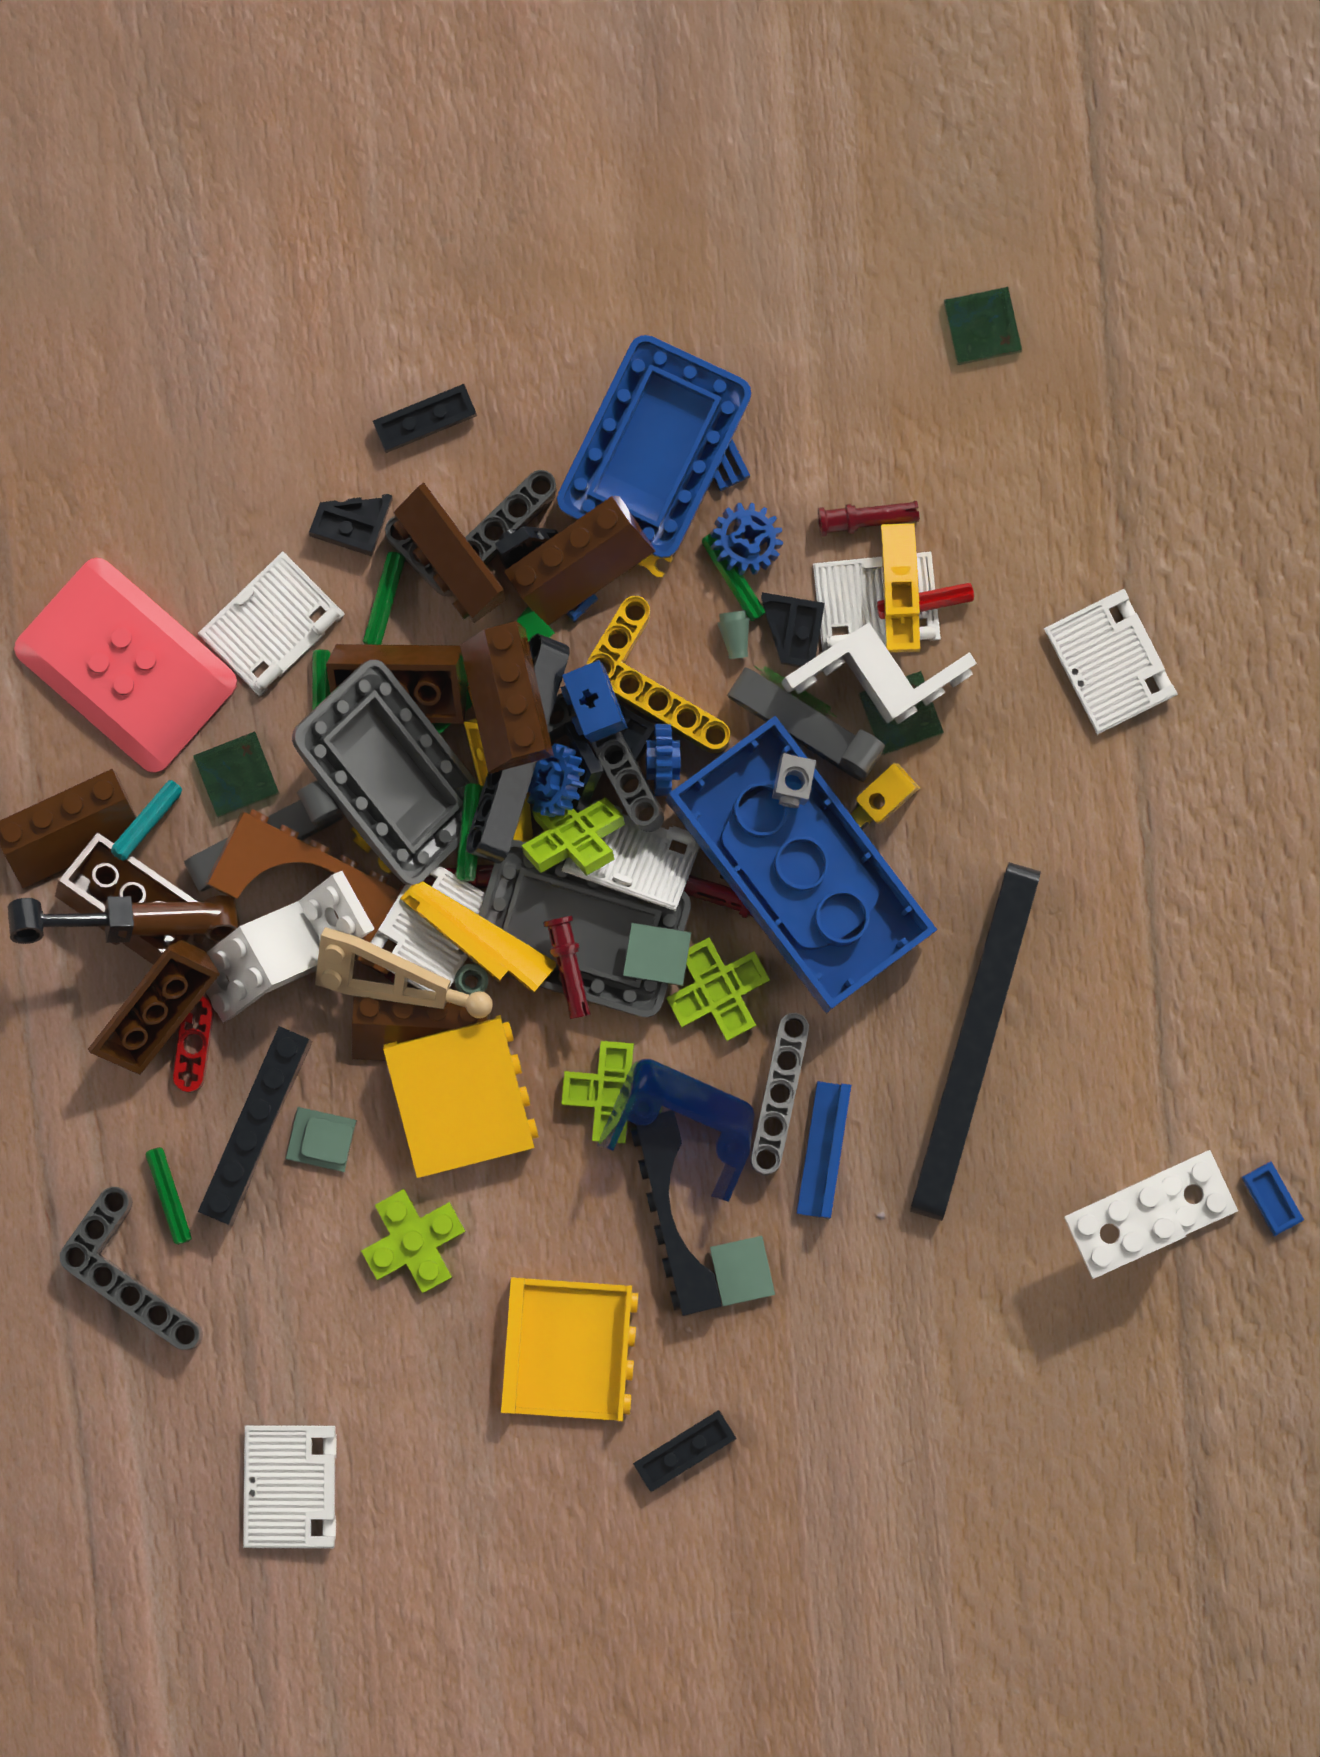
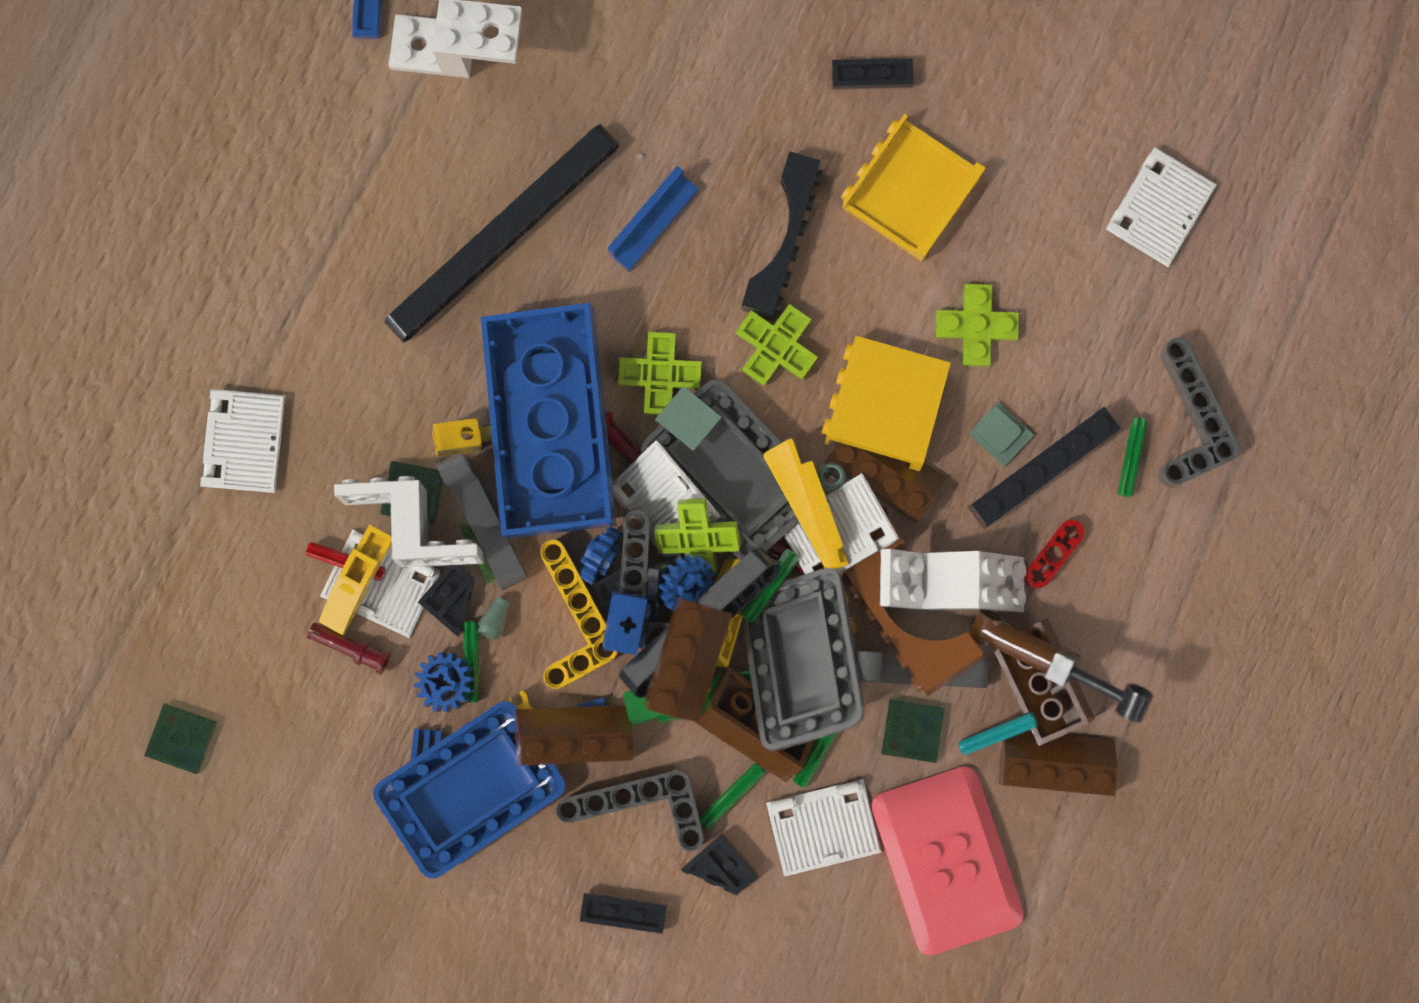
camera: 145 degrees left, 0 degrees up
(156, 1007) = (1068, 588): reddish brown slope -> none
(336, 971) = (924, 539): tan plate -> none
(449, 554) = (666, 795): reddish brown slope -> none
(518, 543) = (611, 773): black wing -> none
(565, 950) = (752, 457): dark red pin -> none
(657, 1085) = (742, 323): clear blue windscreen -> none
(742, 1270) = (759, 172): sand green piece -> none
(787, 1078) = (666, 263): light grey beam -> none
(799, 767) = (504, 477): light grey brick -> none

